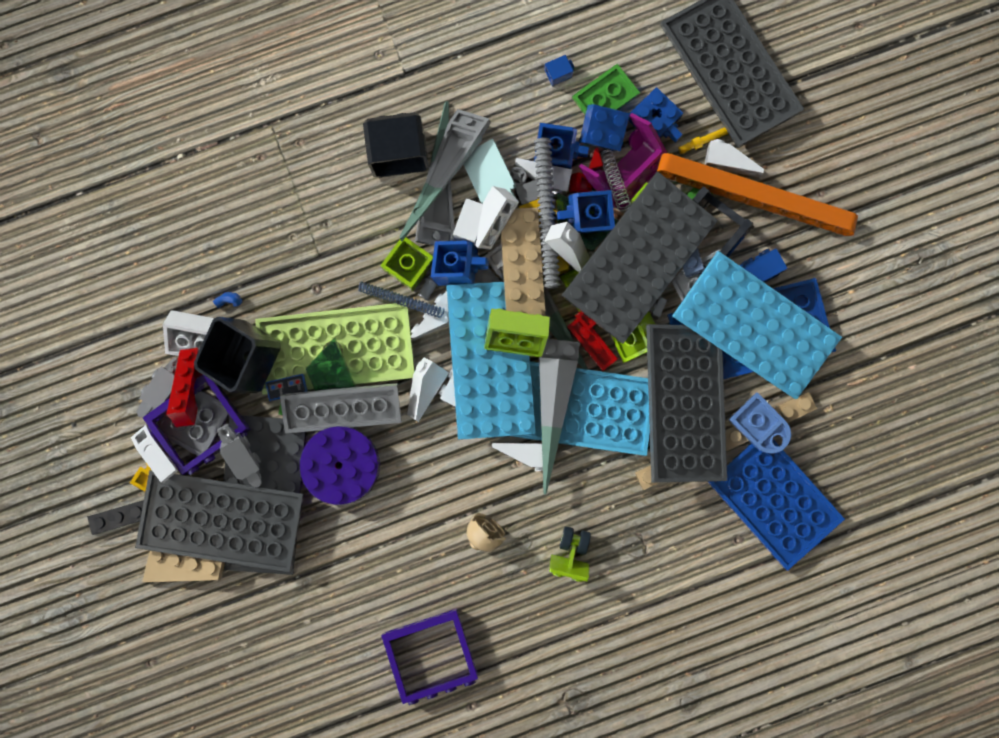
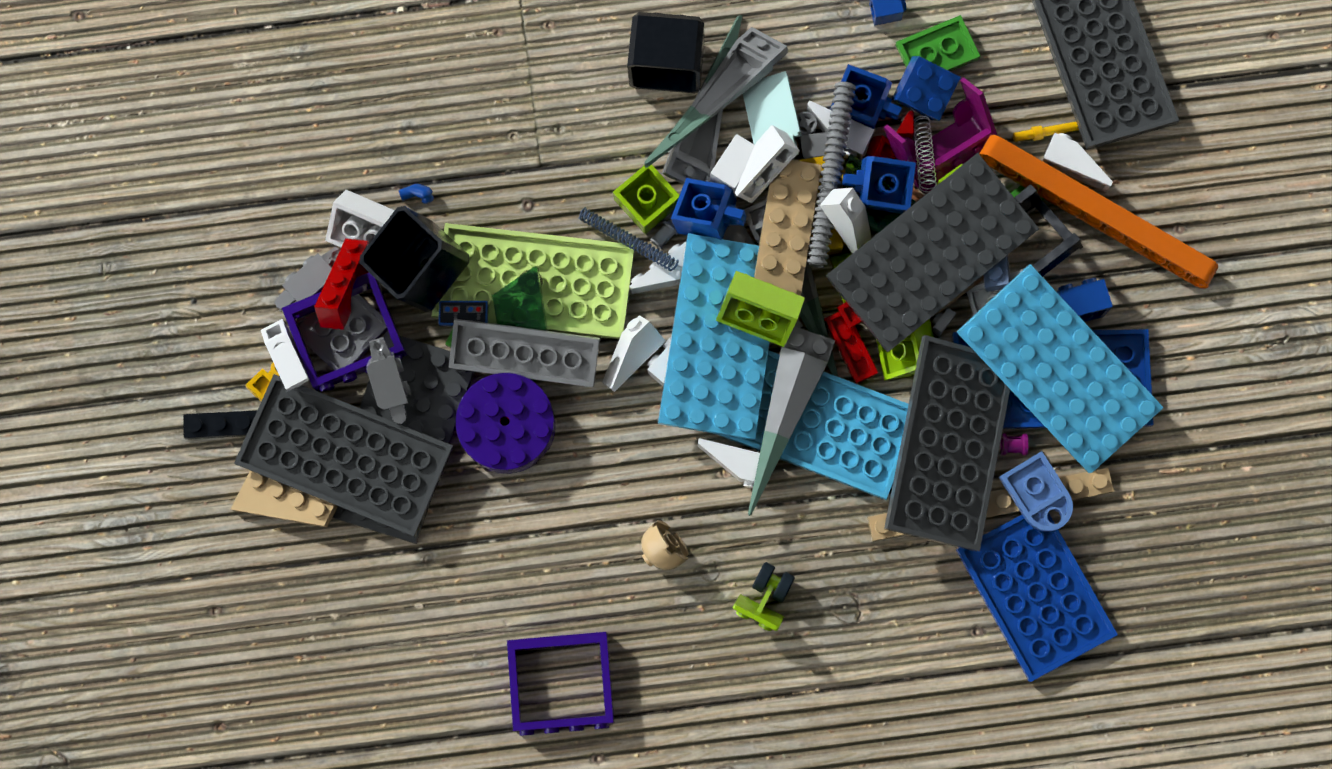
camera: 15 degrees right, 5 degrees down
(668, 114) = (1010, 90): blue hinge -> none
(734, 390) = (1014, 444): none -> magenta bush

